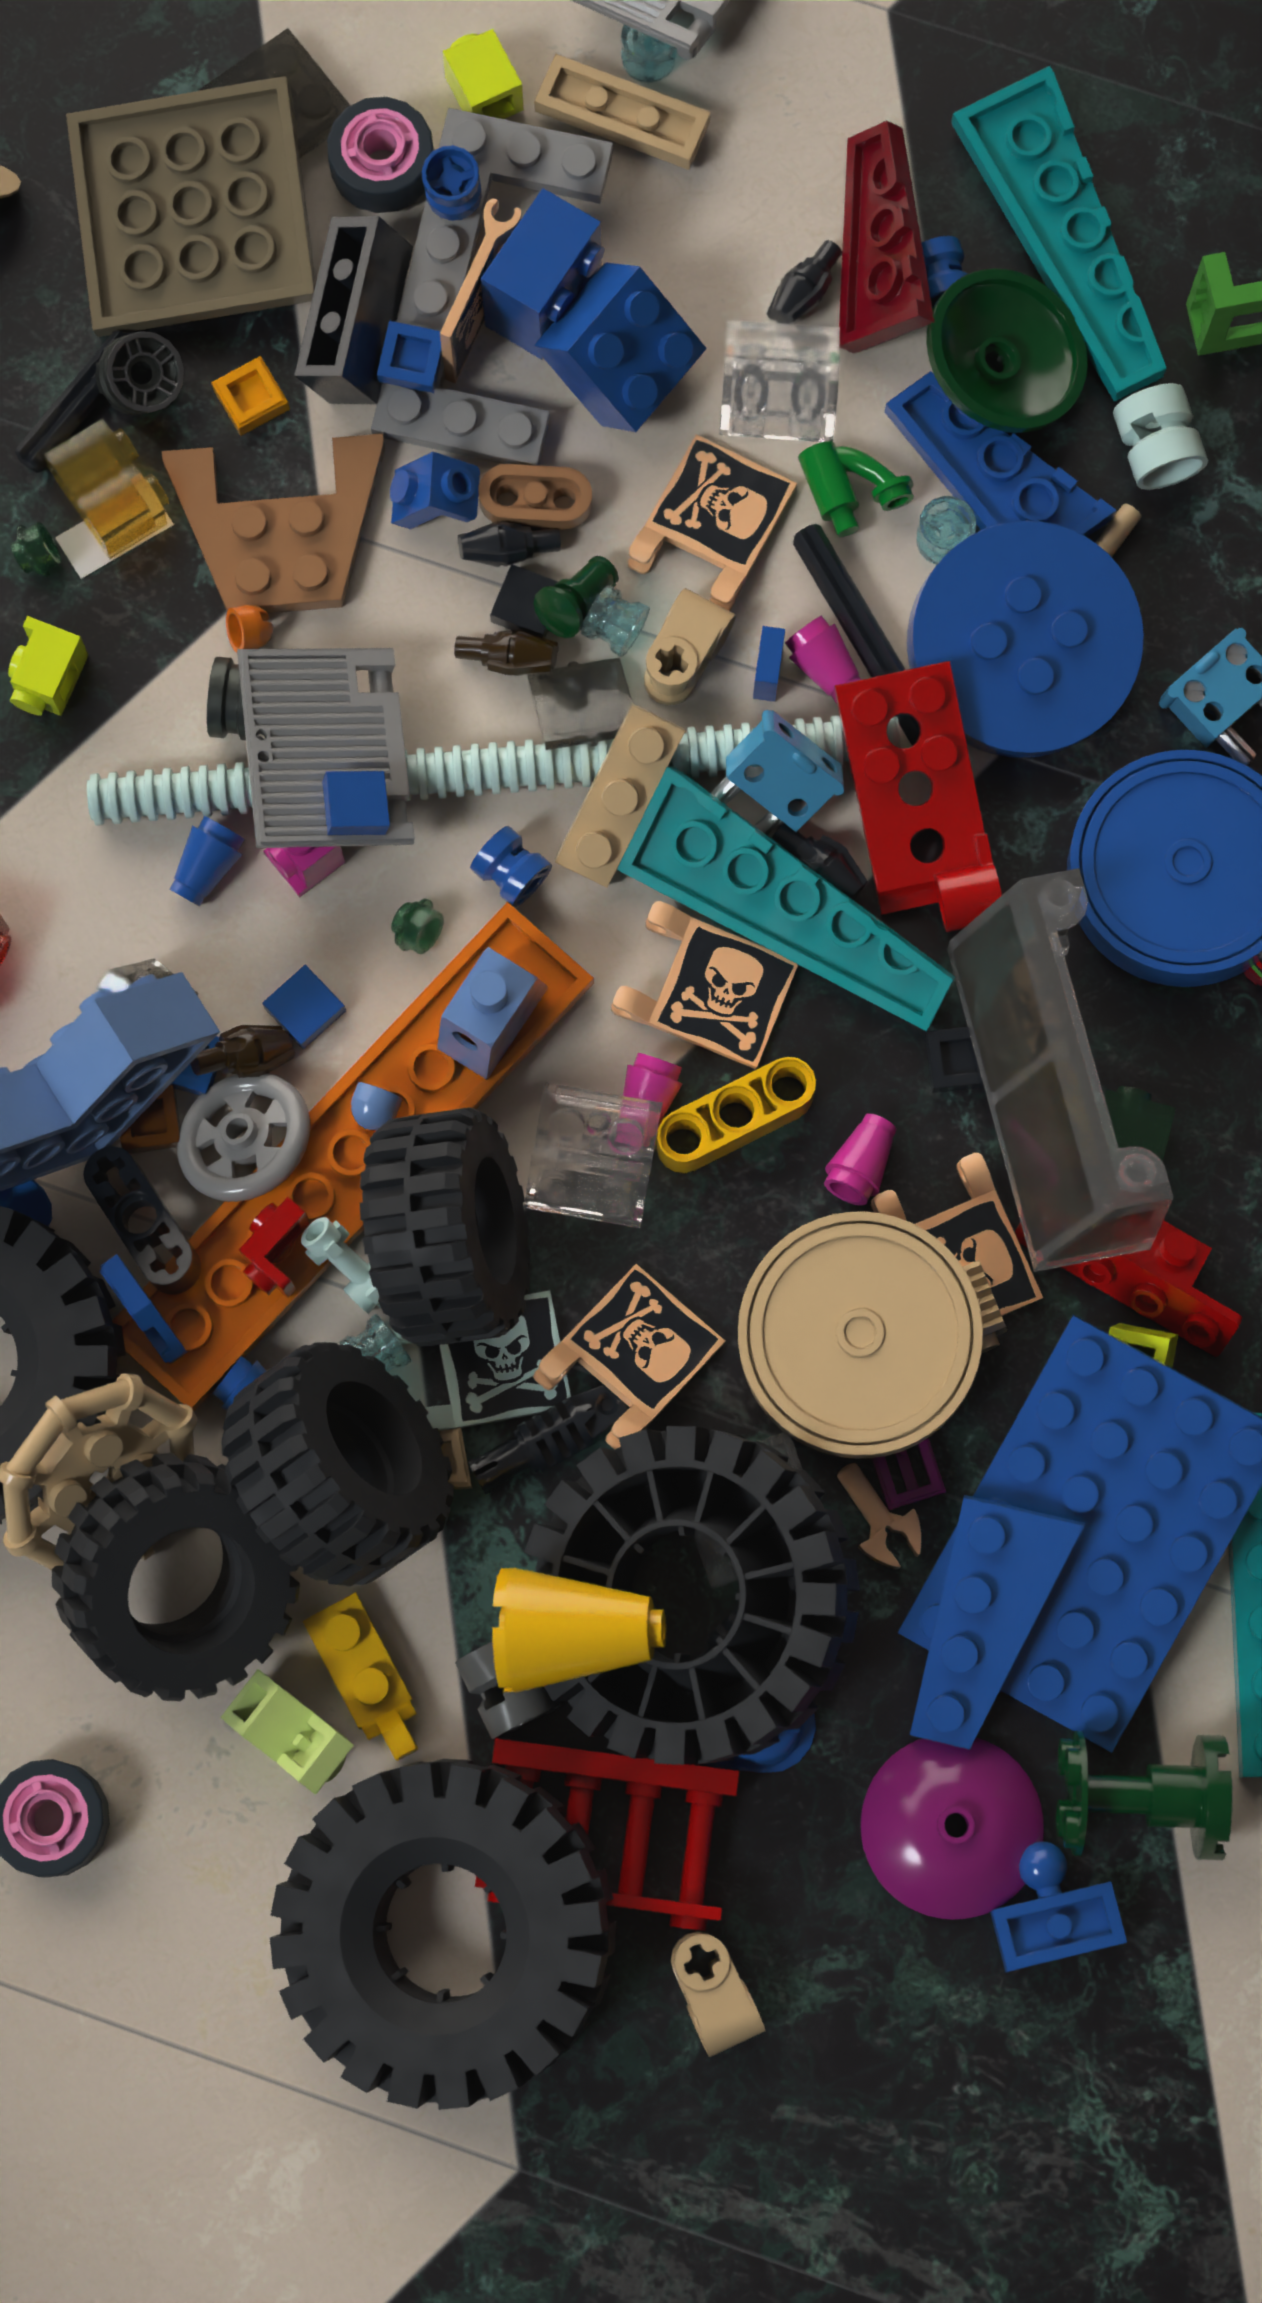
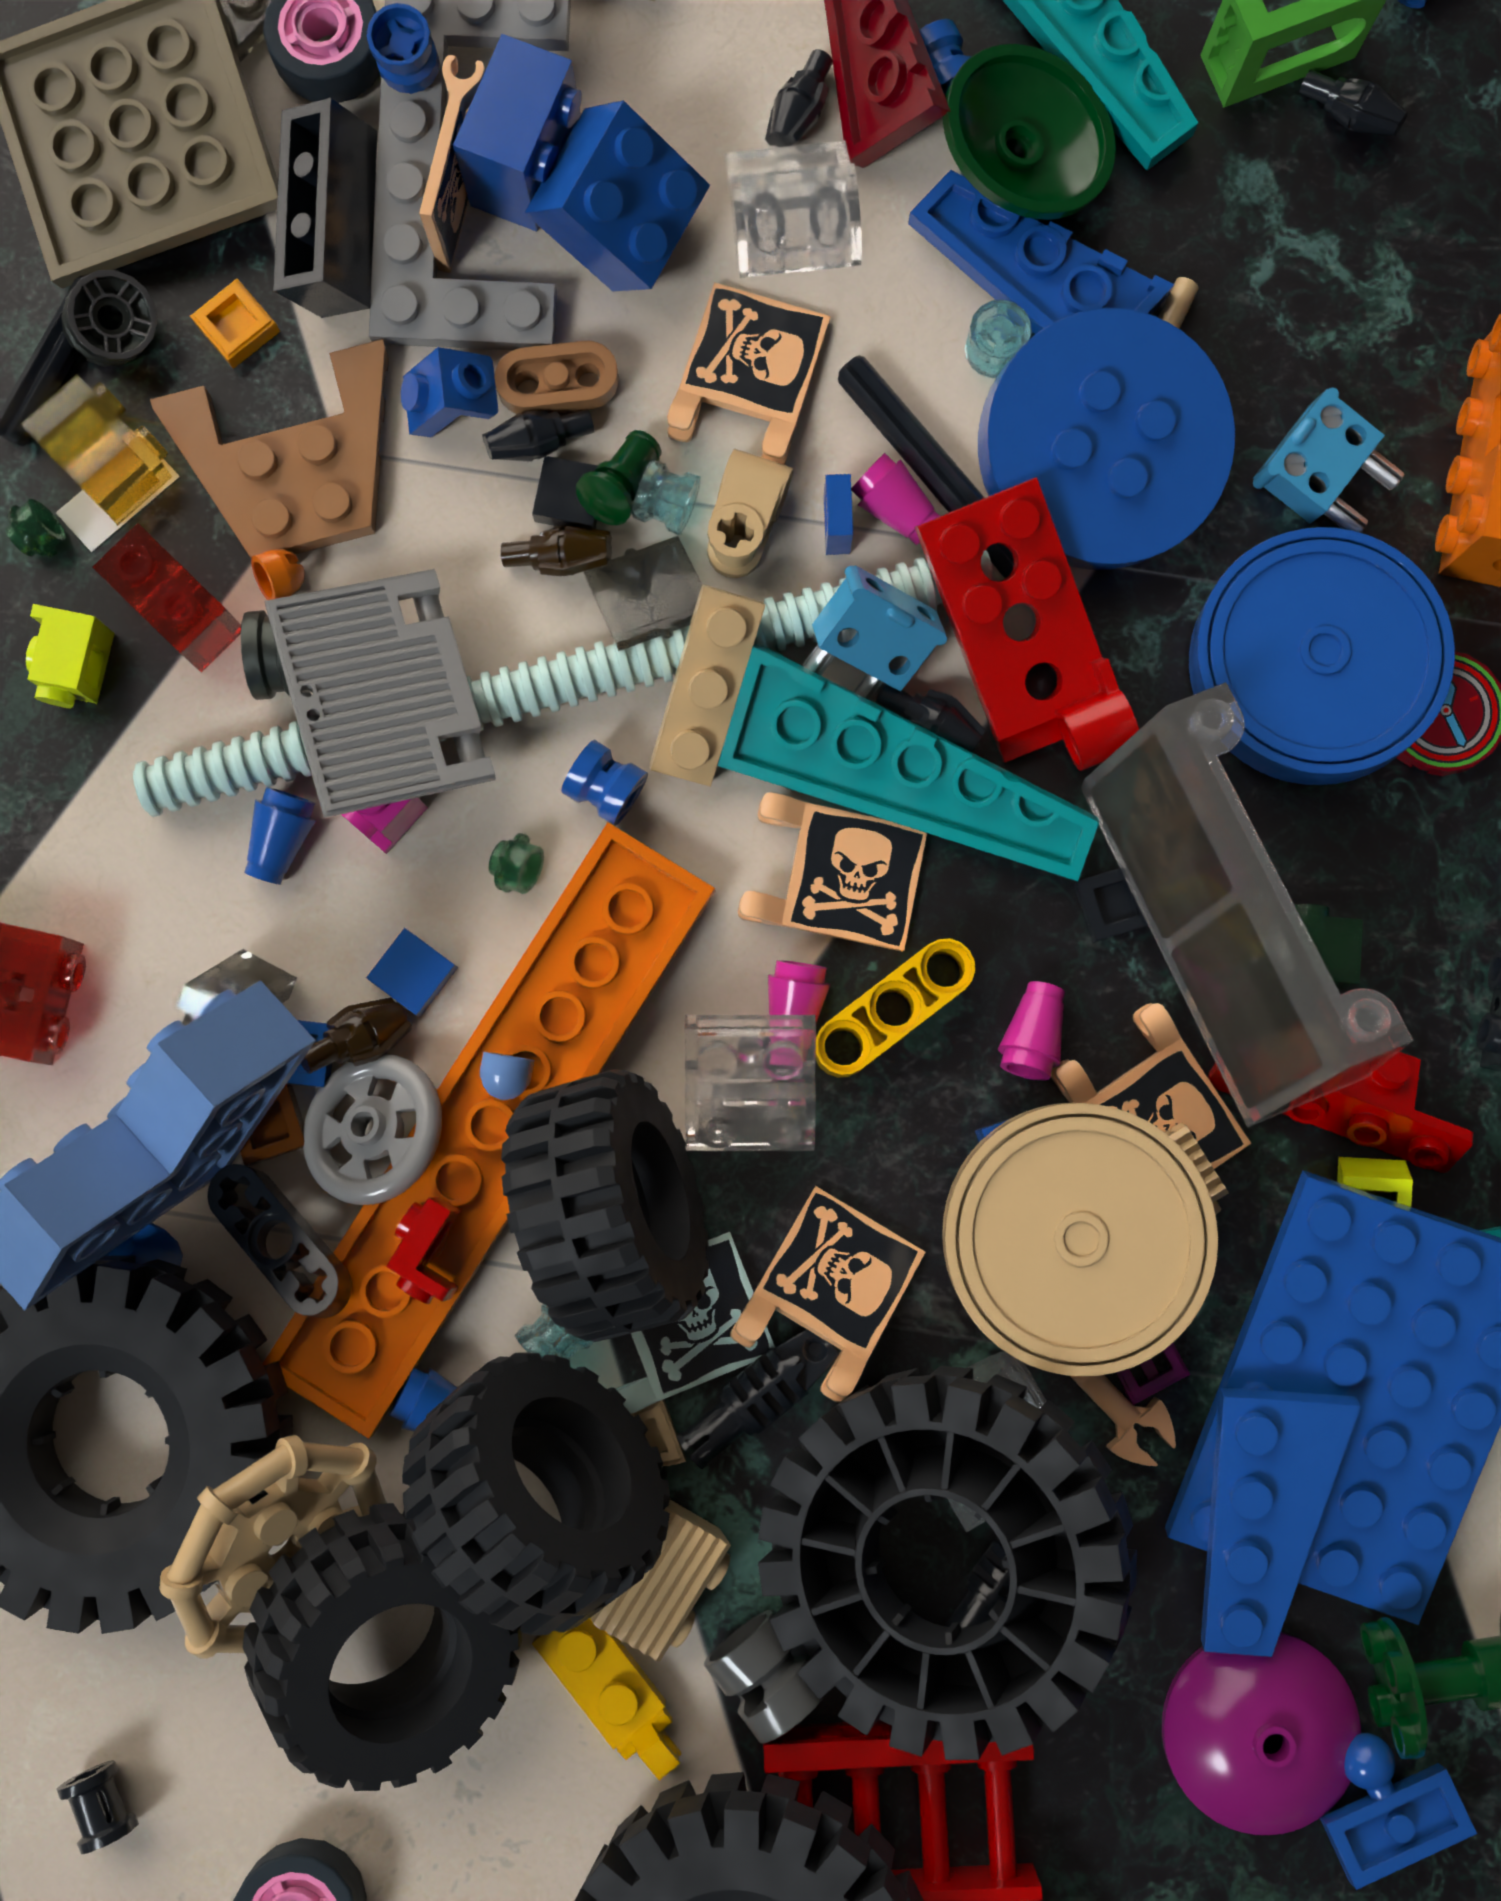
camera: 10 degrees left, 5 degrees up
(142, 1309) = (293, 1341): blue tile -> none
(148, 632) = (168, 597): none -> clear red brick
(288, 1732) = (541, 1773): yellowish green brick -> none
(326, 1242) = (482, 1233): light aqua bar -> none
(355, 803) = (423, 748): blue tile -> none
(410, 357) = (395, 249): blue tile -> none
(430, 1583) = (660, 1606): none -> tan brick
(489, 1011) = (610, 949): medium blue torso -> none
(568, 1629) = (825, 1637): yellow cone -> none
(827, 477) = (861, 302): green plant -> none
(1162, 443) = (1202, 191): light aqua wheel -> none

